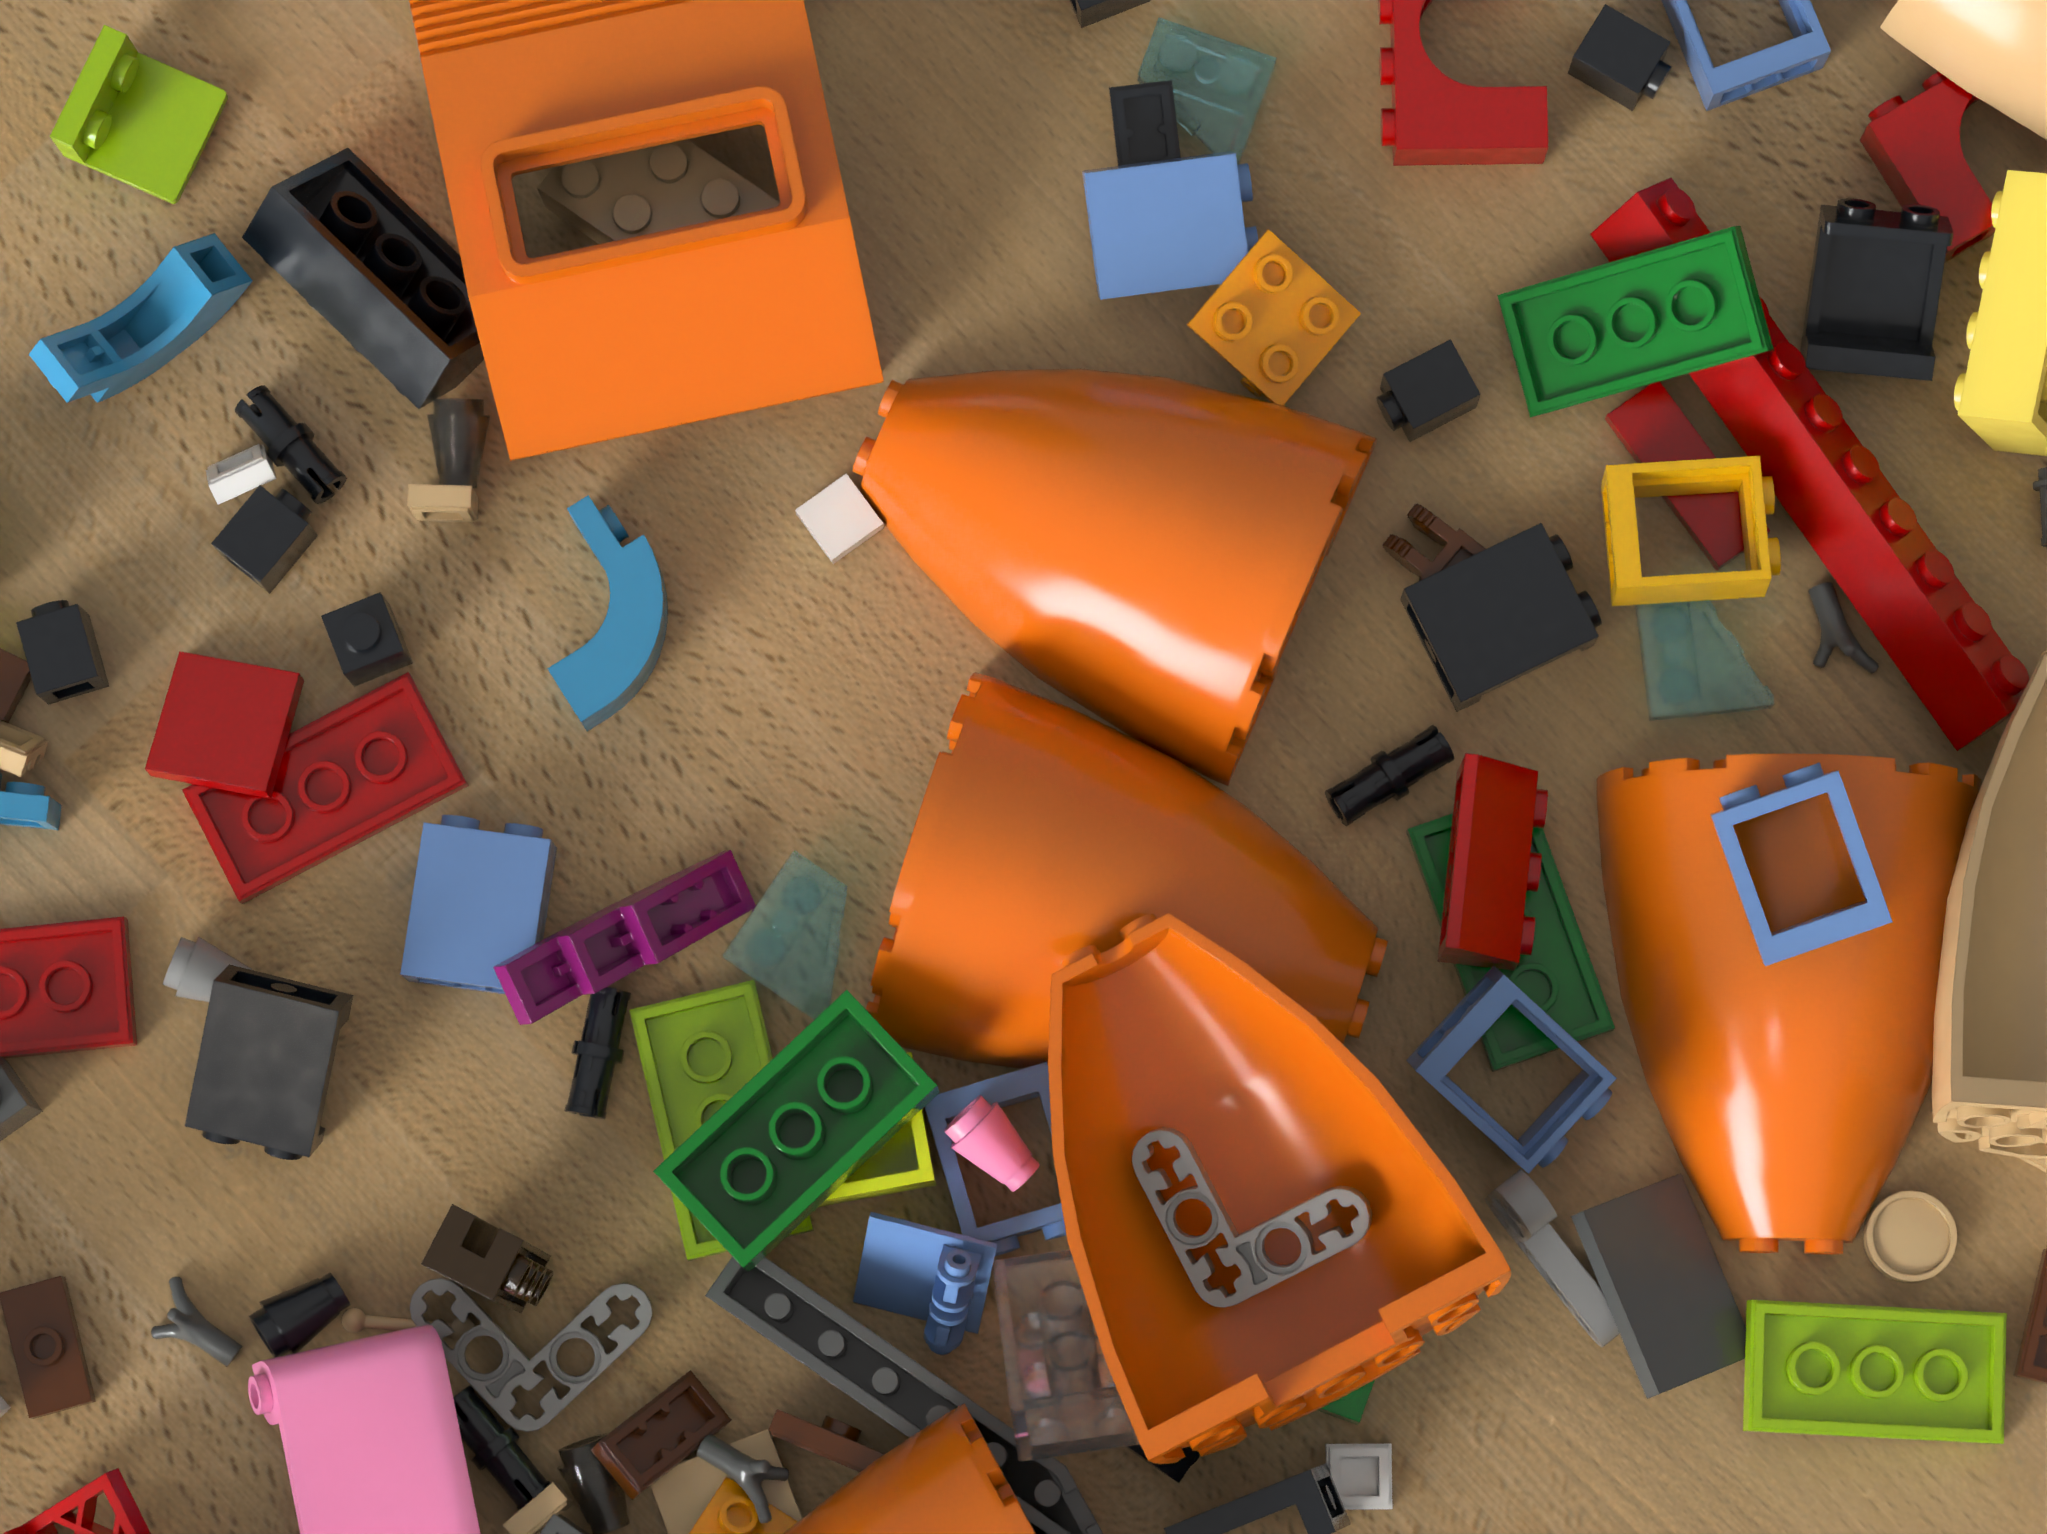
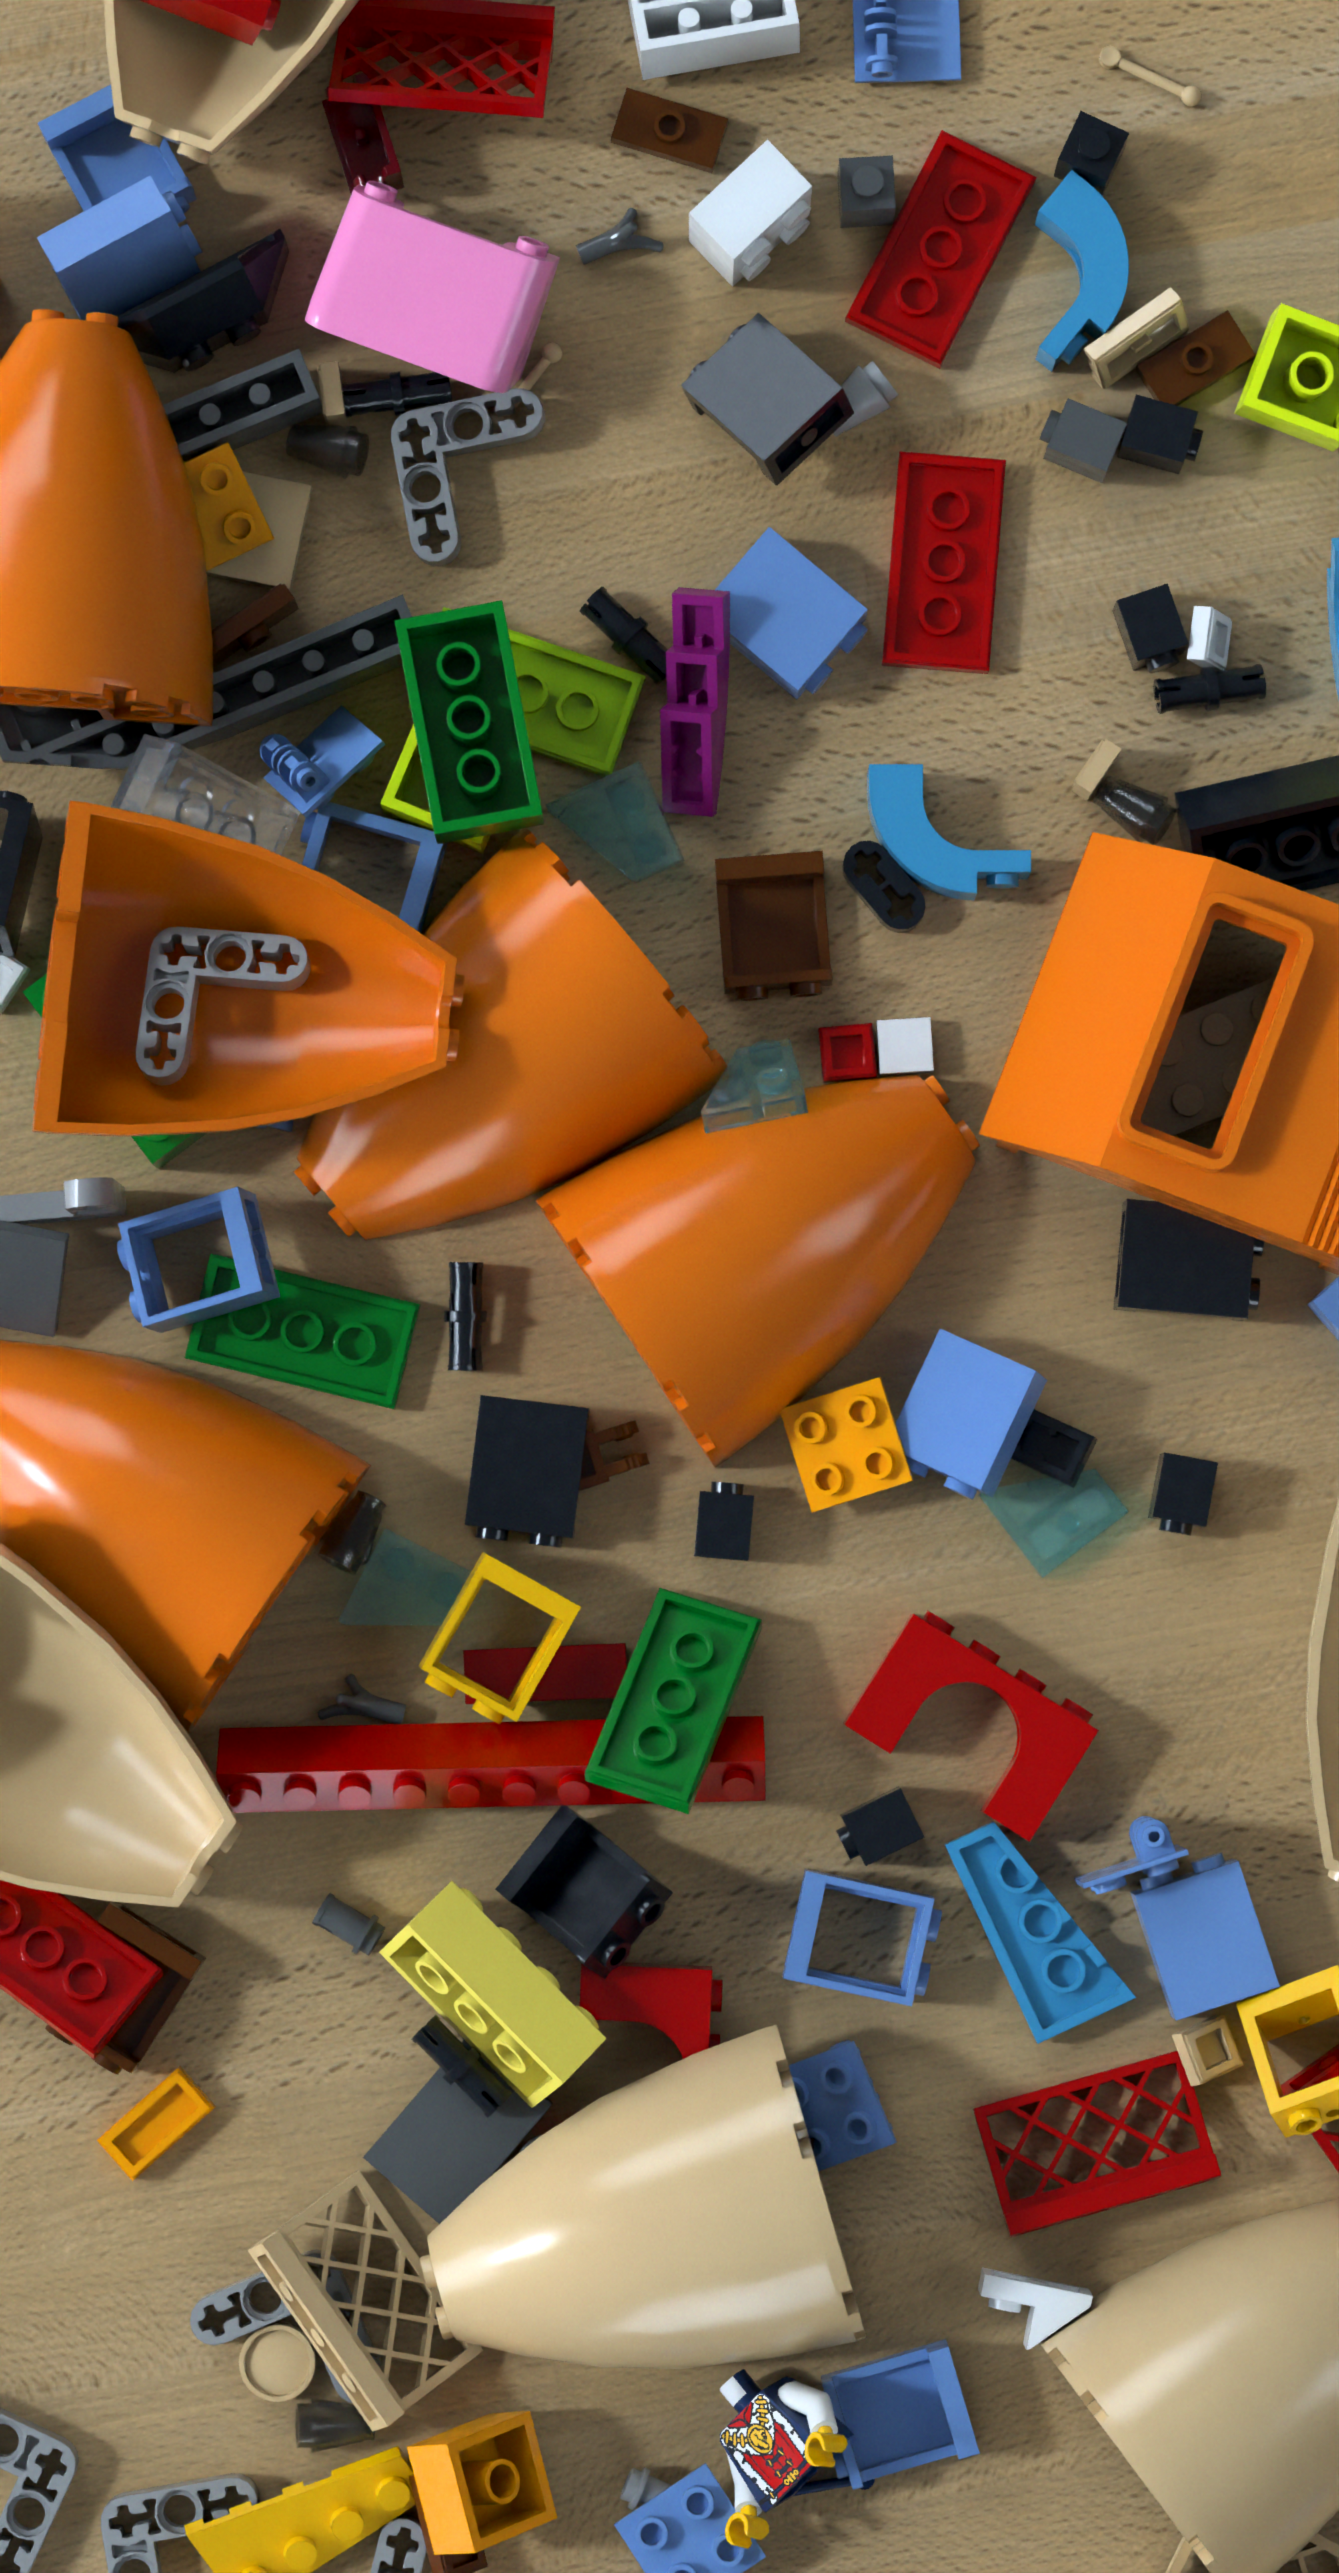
camera: 120 degrees right, 5 degrees up
(87, 1198) = (751, 214): none -> white brick
(113, 723) = (1082, 439): none -> dark grey brick
(224, 724) = (1032, 517): red tile -> none
(298, 1315) = (578, 314): black cone -> none
(367, 639) = (1029, 653): black brick -> none
(489, 1260) = (511, 447): dark brown brick -> none
(660, 1435) = (331, 510): reddish brown plate -> none
(678, 634) = (893, 878): none -> black beam
(744, 1470) = (268, 551): dark grey bar -> none
(803, 721) = (773, 924): none -> reddish brown panel
(882, 571) = (847, 1052): none -> red tile
(885, 113) = (1183, 1264): none -> black panel
(977, 625) = (756, 1087): none -> clear light blue wing
(992, 1143) = (379, 859): bright pink cone -> none
(1491, 864) = (348, 1338): red slope -> none
(1677, 739) = (352, 1534): none -> clear smoke cone
(1822, 929) = (138, 1520): medium blue window -> none

